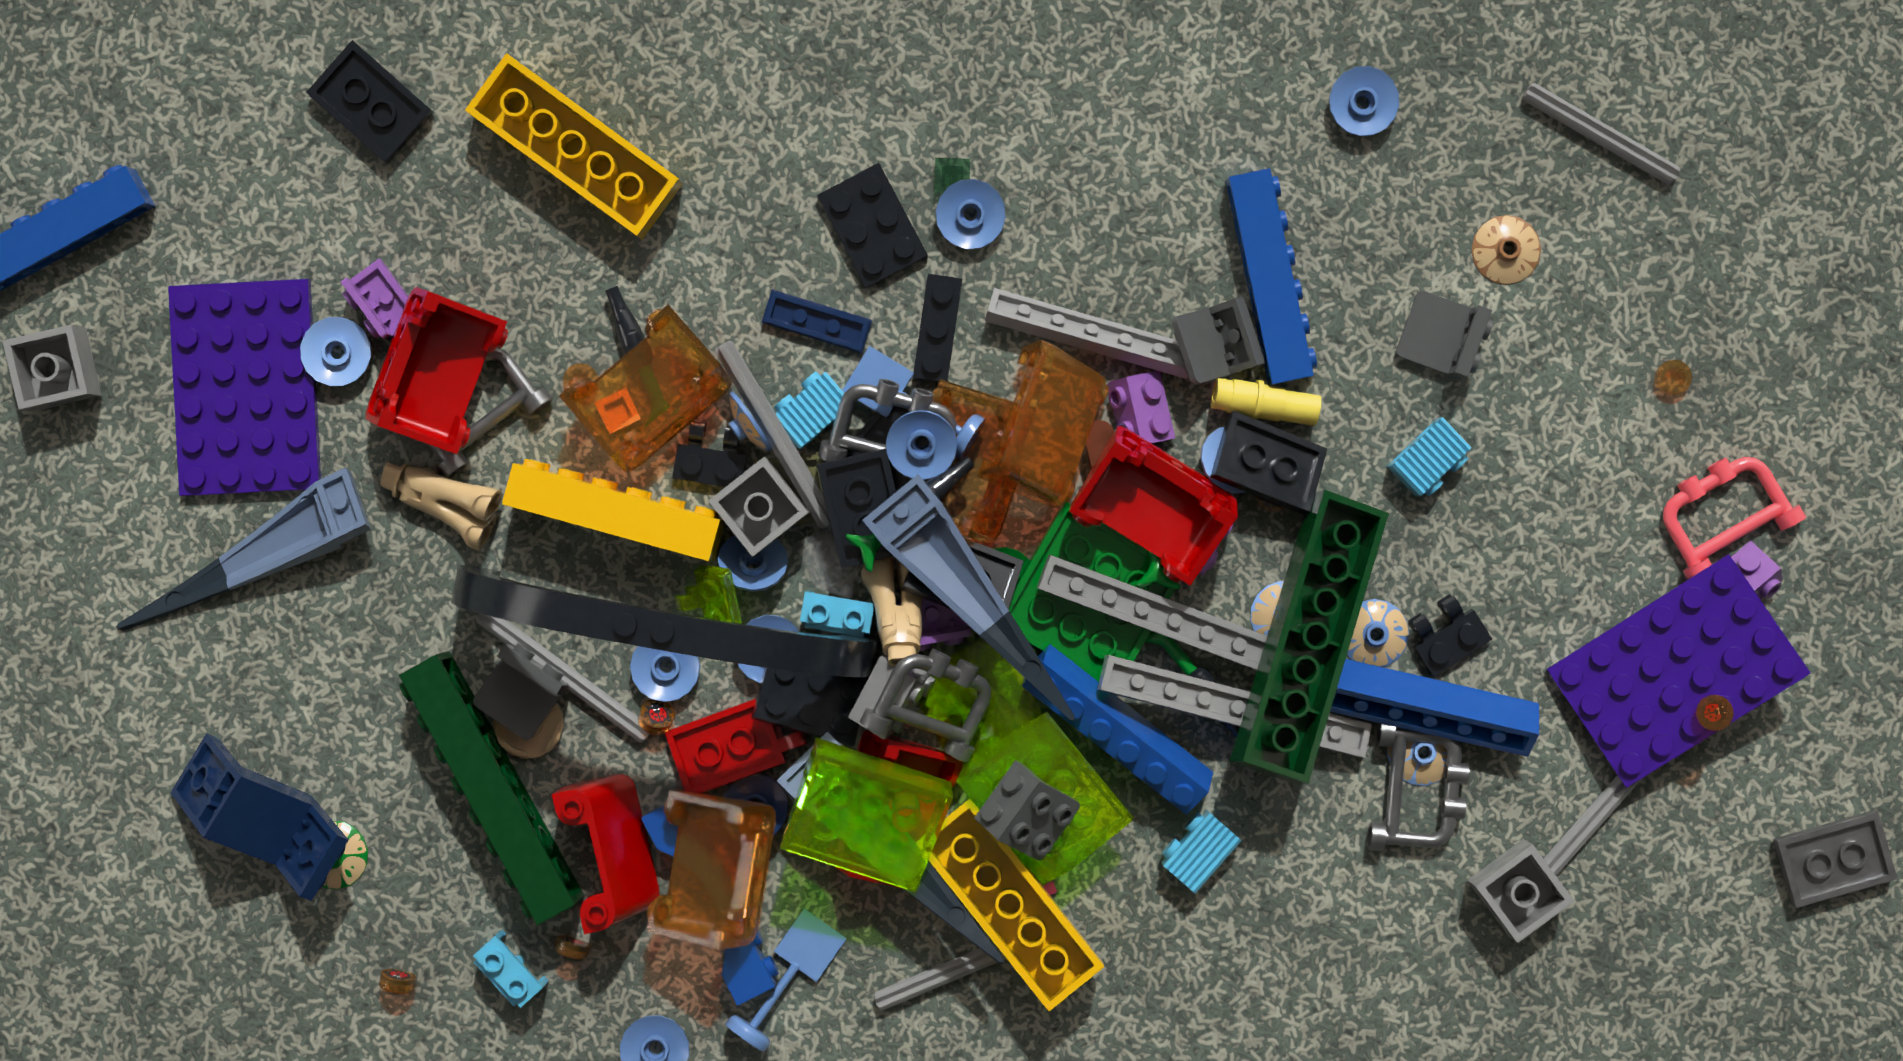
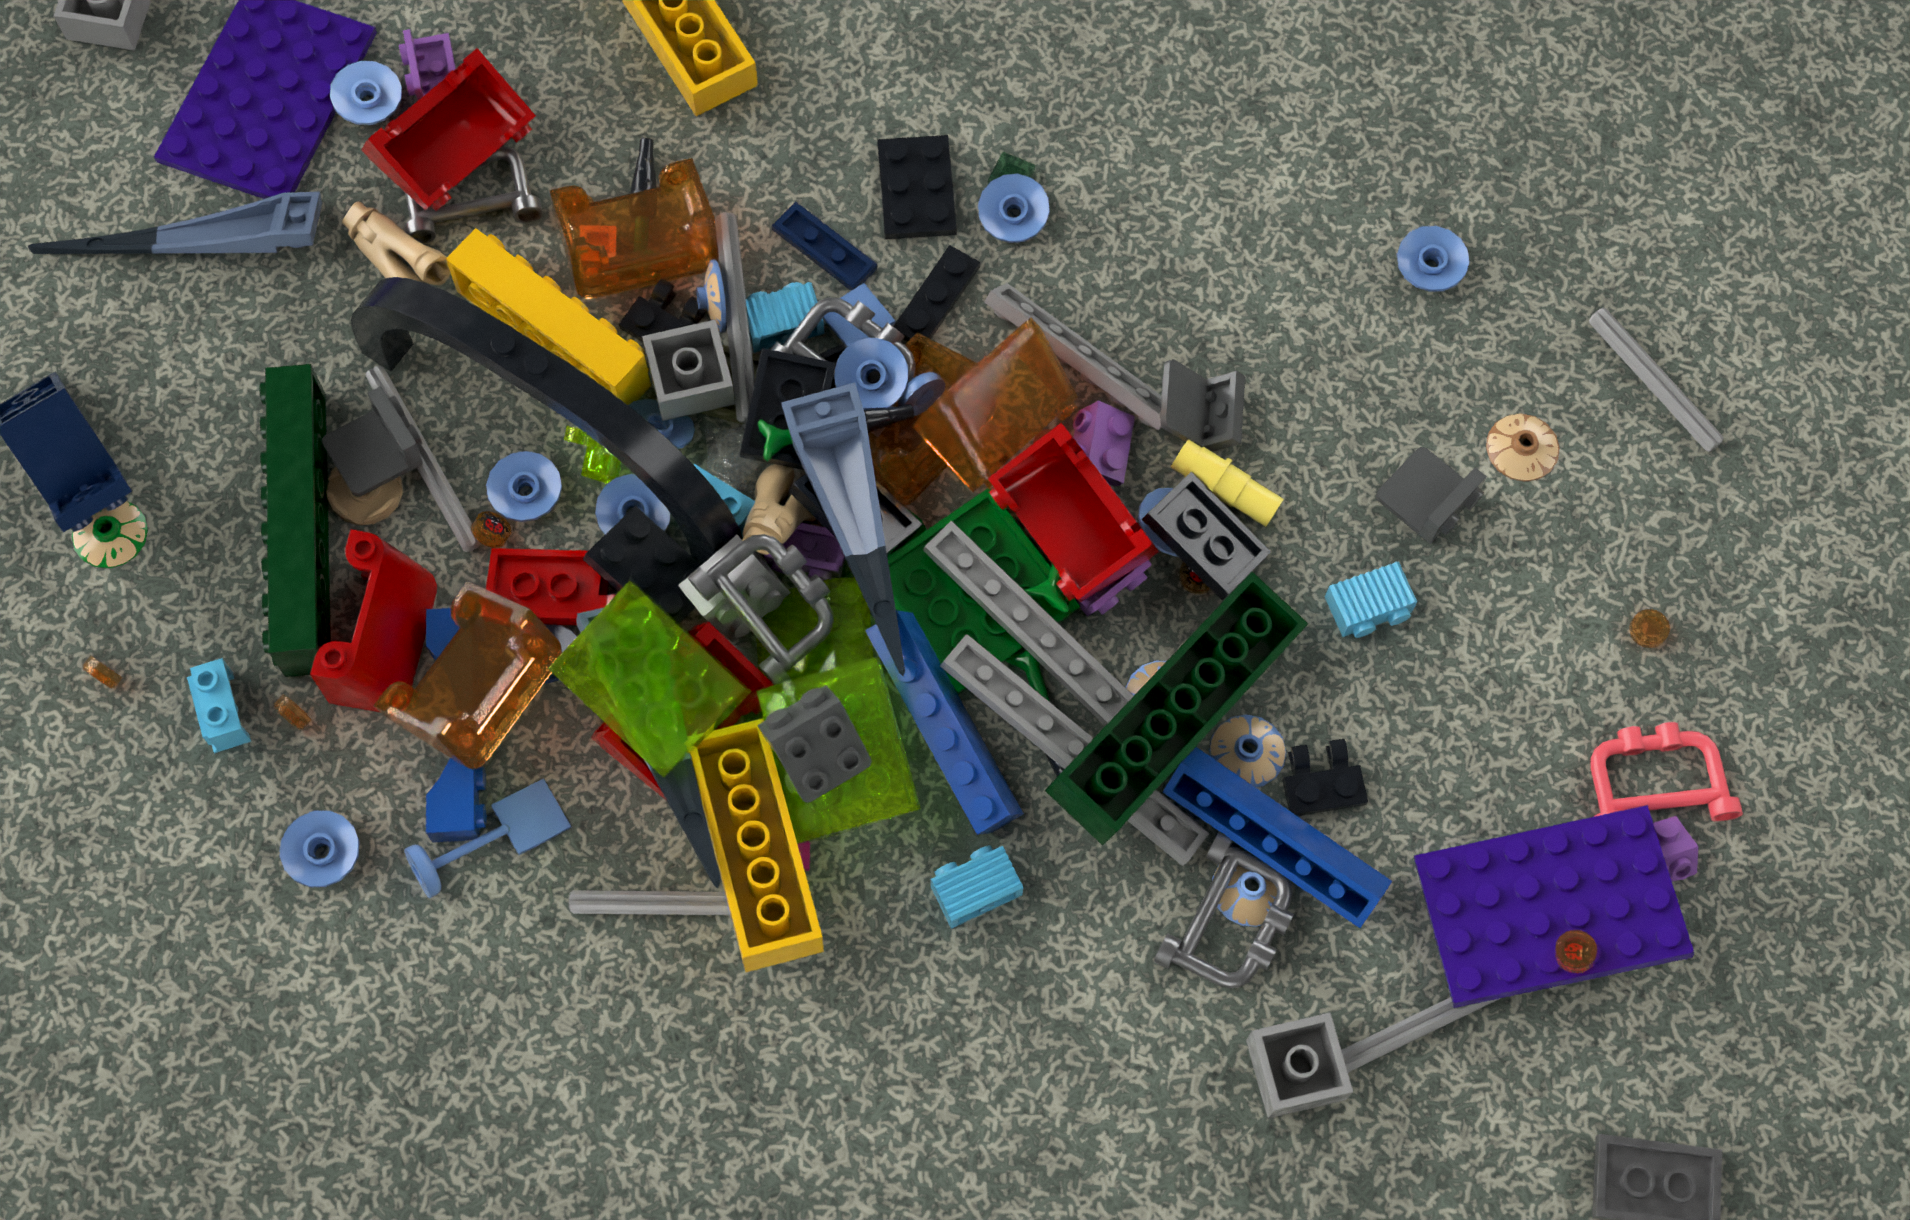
camera: 20 degrees right, 20 degrees down
(1270, 276) = (1278, 374): blue brick -> none

